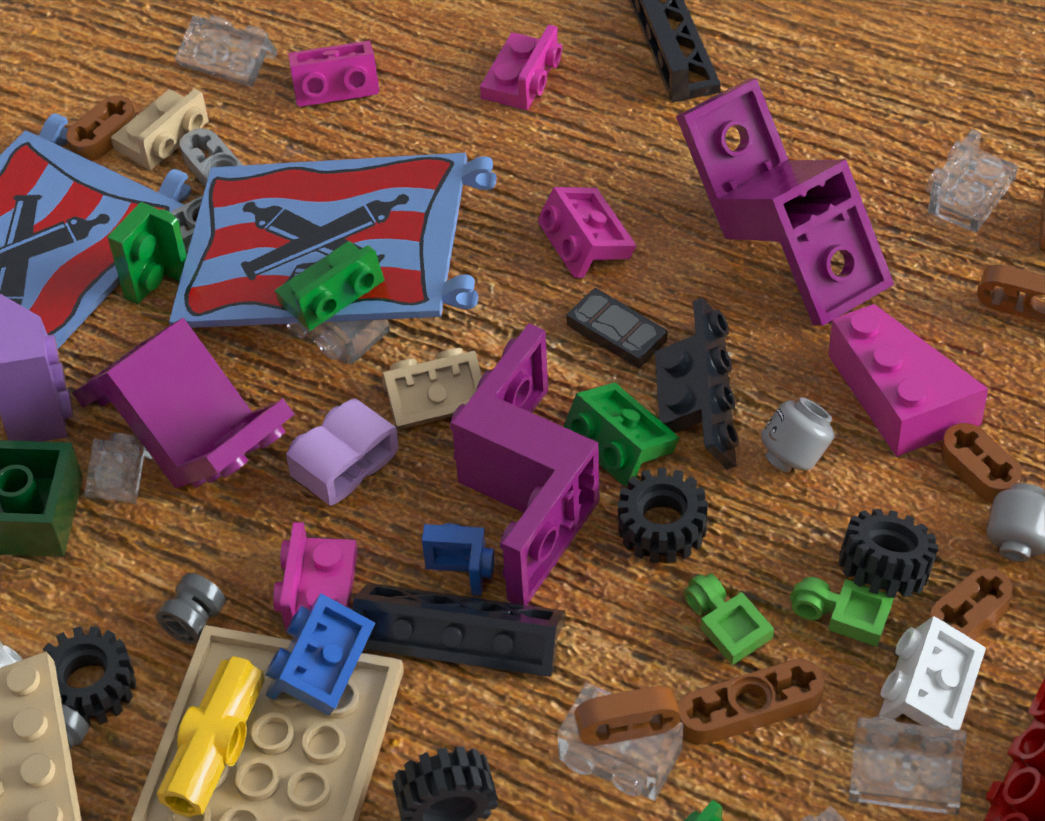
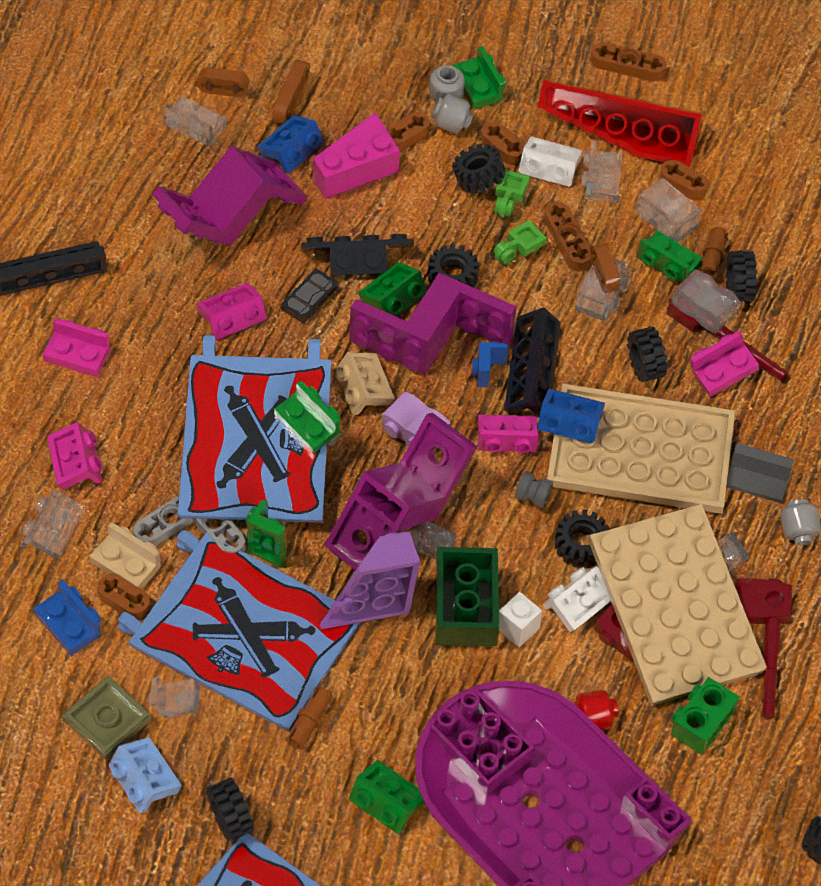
camera: 100 degrees left, 5 degrees up
(78, 76) = (69, 618): none -> blue bracket
(211, 737) = (627, 458): yellow piece -> none
(797, 435) = (400, 203): light grey head -> none
(932, 302) = (292, 142): none -> blue bracket

